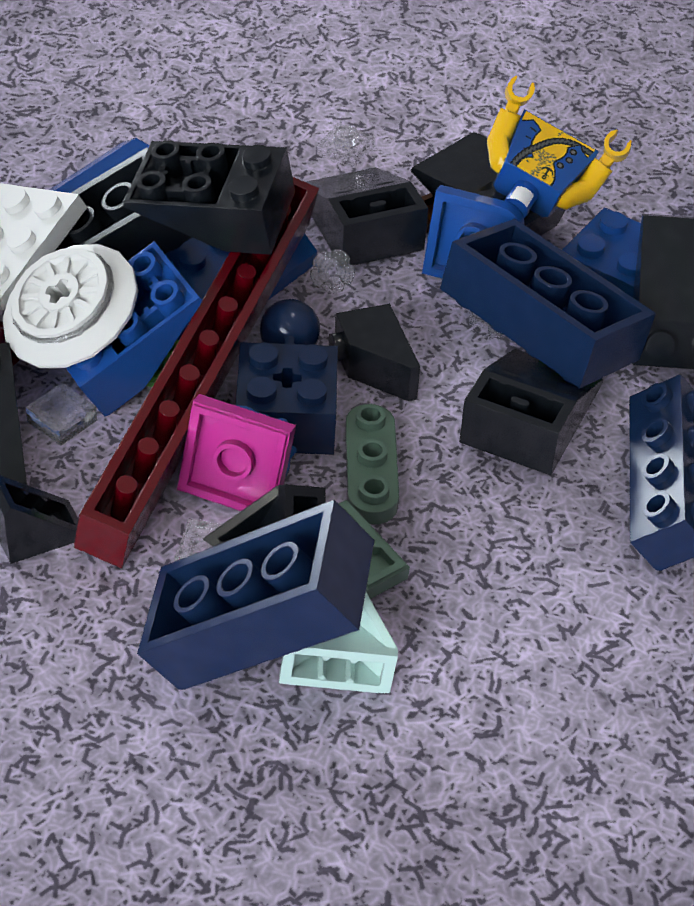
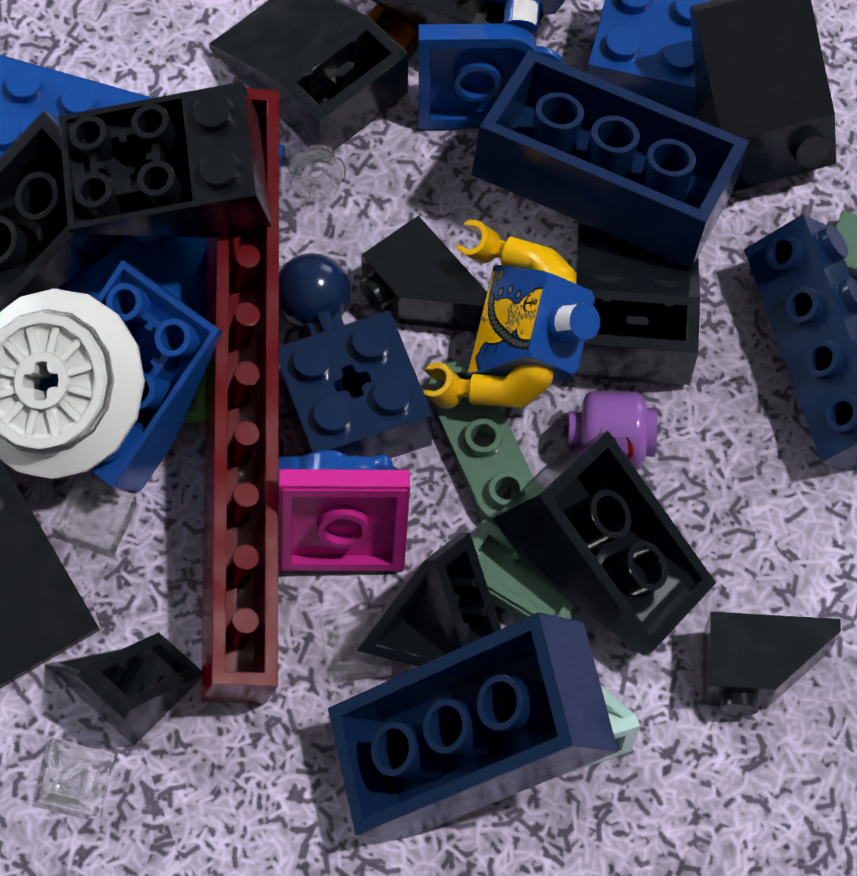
camera: 20 degrees left, 20 degrees up
(431, 535) = (606, 544): none -> black slope
(433, 385) = (527, 329): none -> torso
(473, 476) = (623, 416): none -> medium lavender head
(524, 655) = (759, 657): none -> black slope

